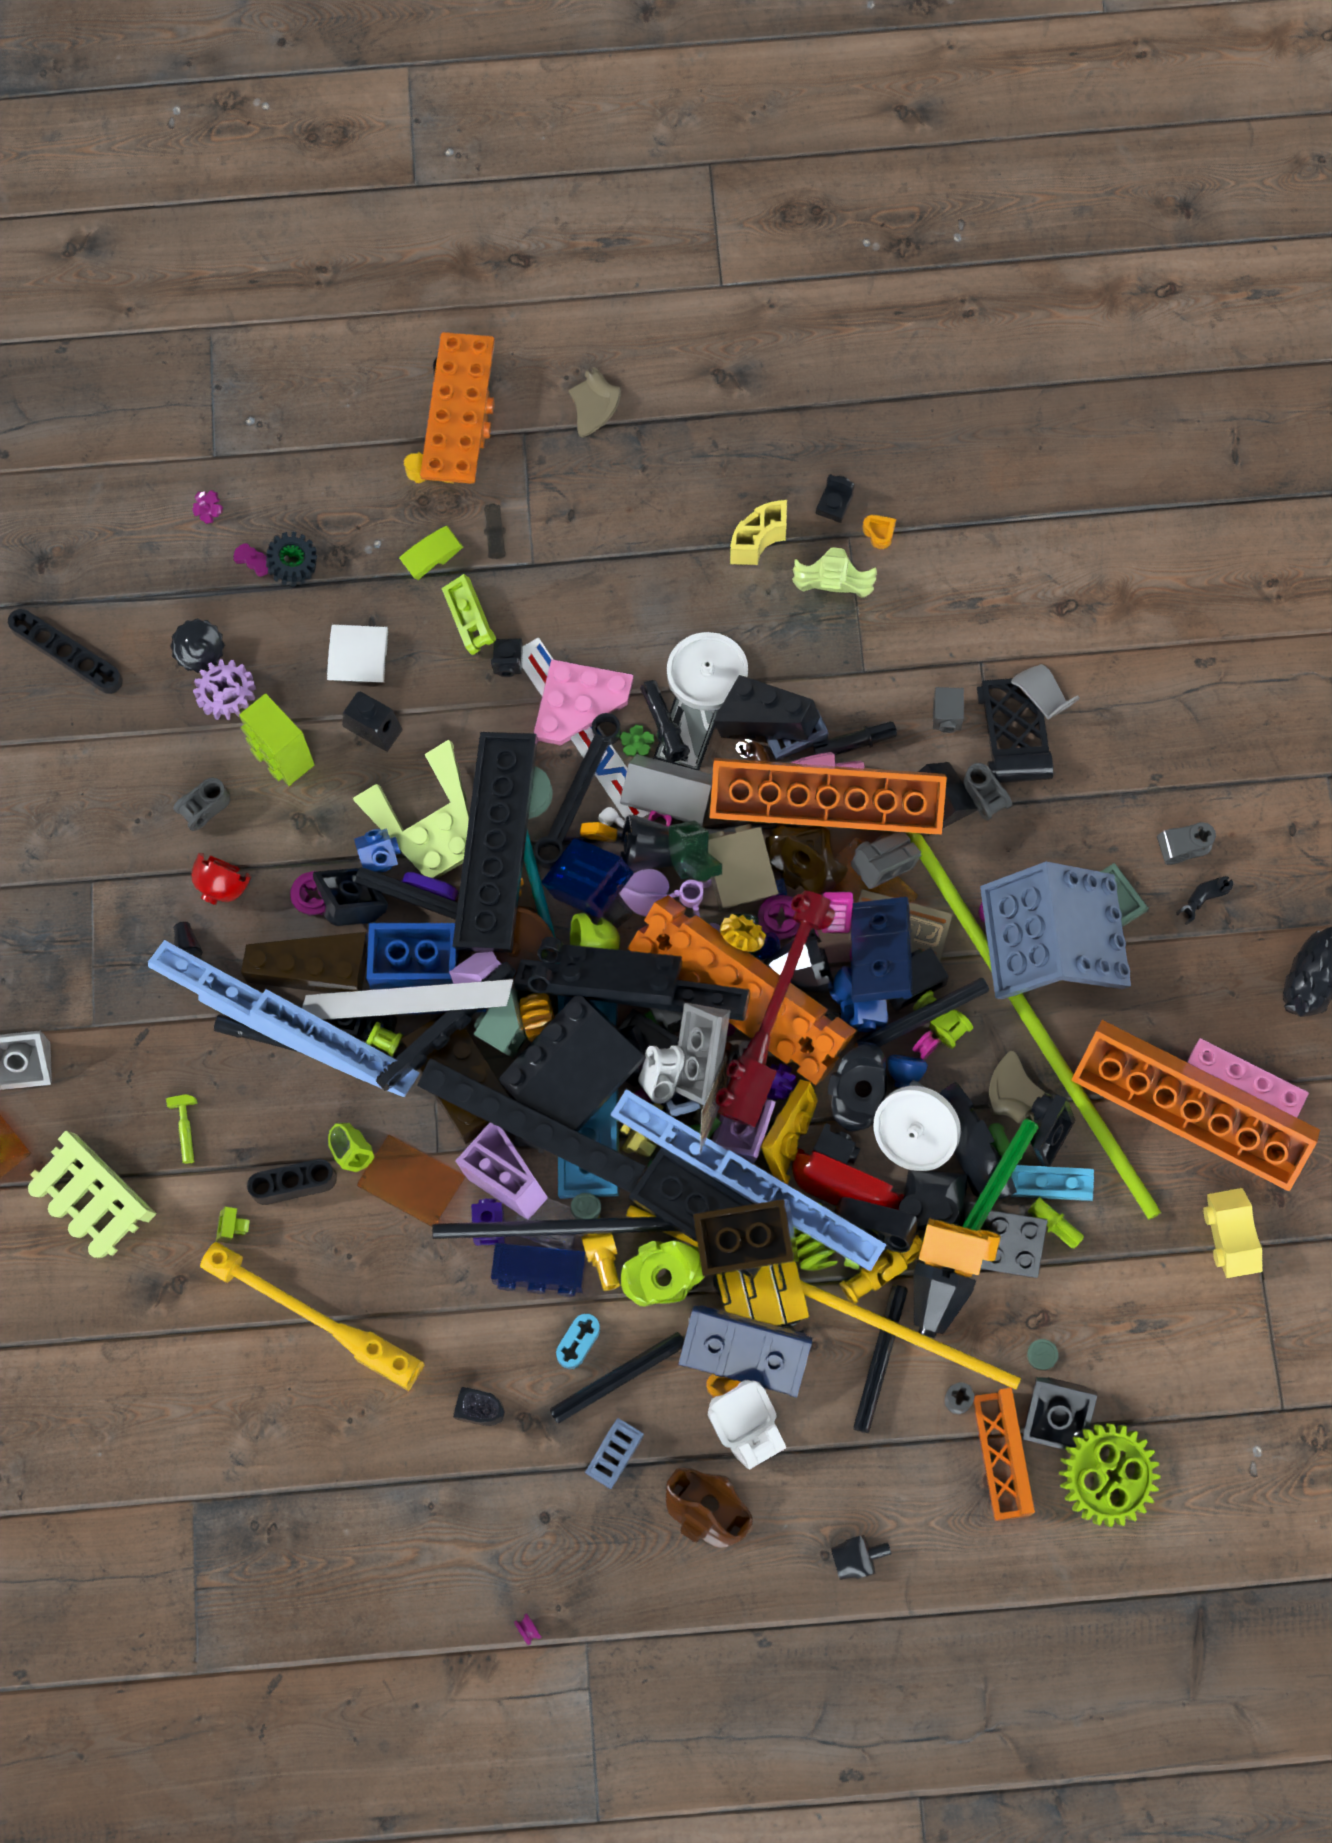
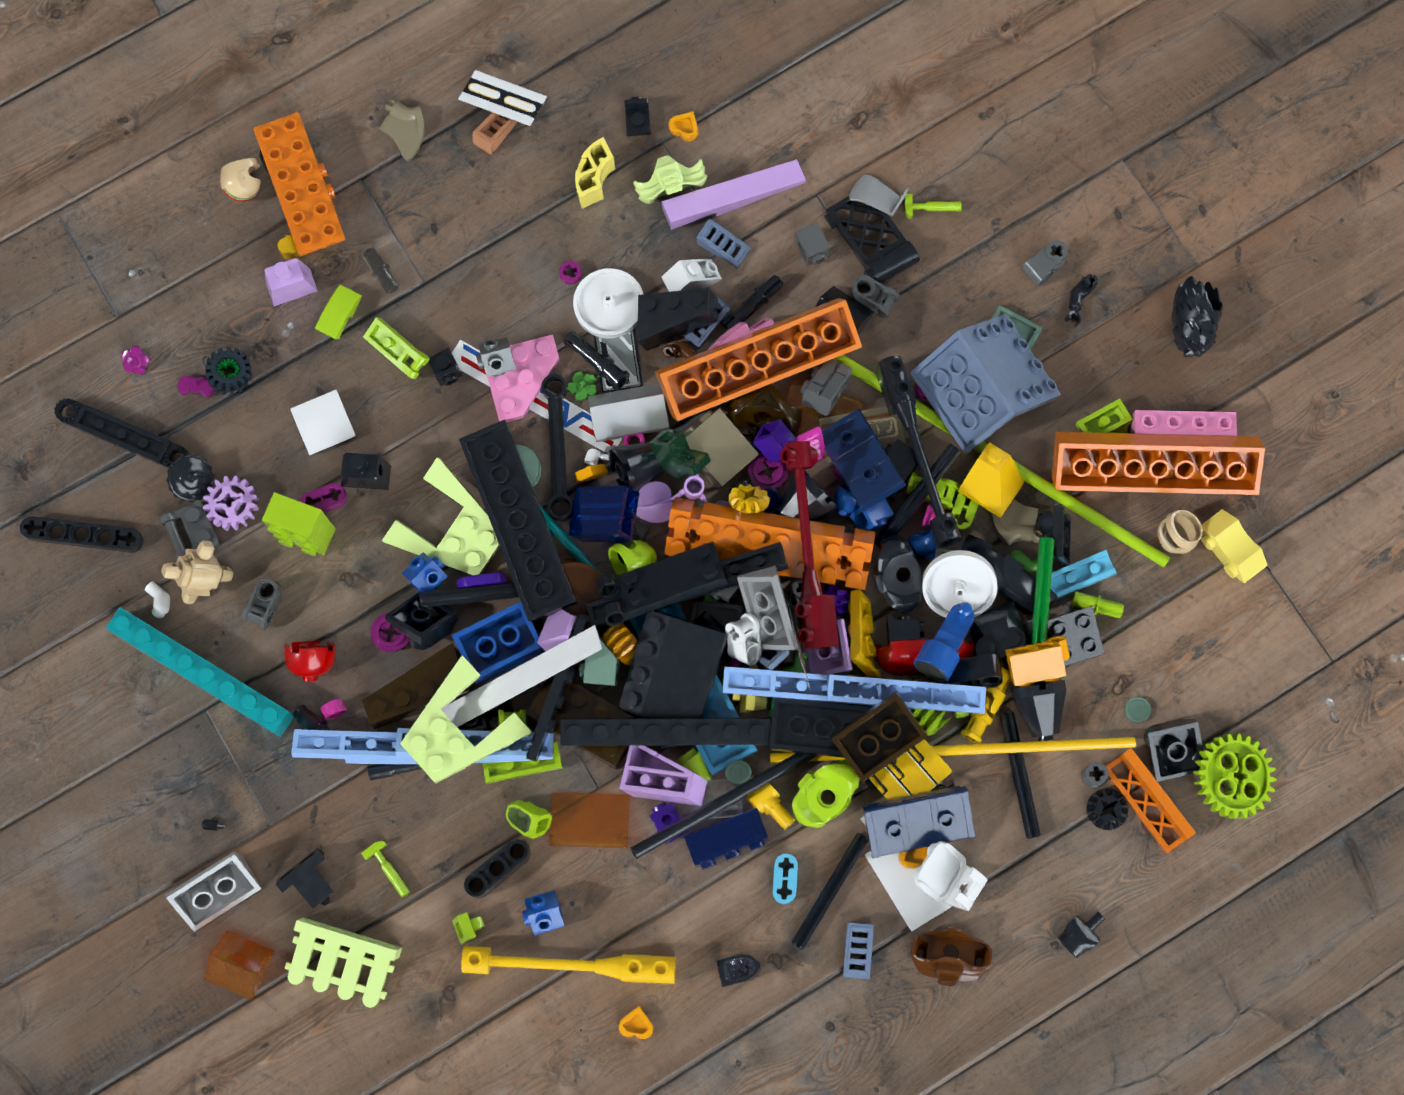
camera: 25 degrees left, 5 degrees up
(35, 996) = (211, 825): none -> black piece
(99, 1099) = (307, 880): none -> black piece
(105, 841) = (200, 672): none -> teal brick
(106, 751) = (161, 599): none -> white arm
(153, 569) = (119, 433): none -> black plate
(154, 740) = (197, 572): none -> tan piece
(180, 699) = (196, 525): none -> dark grey plate
(215, 941) = (333, 709): none -> dark pink axle
(297, 1024) = (440, 745): none -> yellowish green wing
(313, 1249) = (543, 912): none -> blue brick
(317, 726) = (325, 492): none -> magenta beam
(348, 1411) = (636, 1024): none -> light orange tile
(357, 1089) = (503, 771): none -> lime plate
(398, 377) = (237, 182): none -> tan helmet
(398, 498) = (289, 281): none -> lavender torso
(547, 1176) = (694, 762): none -> lime cone
(561, 668) = (495, 357): none -> brick
(672, 454) = (486, 139): none -> nougat slope
(691, 618) = (574, 266): none -> magenta bush
(696, 1433) = (909, 899): none -> white sticker
(708, 417) = (502, 97): none -> sticker
(799, 880) = (772, 438): none -> dark purple brick
(807, 681) = (691, 275): none -> white slope
(844, 645) = (719, 231): none -> sand blue slope
(856, 1188) = (939, 656): none -> blue piece
(892, 620) = (732, 194): none -> lavender slope
(947, 1453) = (1095, 807): none -> black gear
(954, 913) = (901, 401): none -> black bar
(963, 1049) = (970, 511): none -> lime beam
(1010, 1039) = (993, 480): none -> yellow slope
(1093, 728) = (929, 205): none -> lime piece
(1169, 1035) = (1109, 419): none -> lime slope
(1182, 1189) = (1179, 532): none -> tan helmet

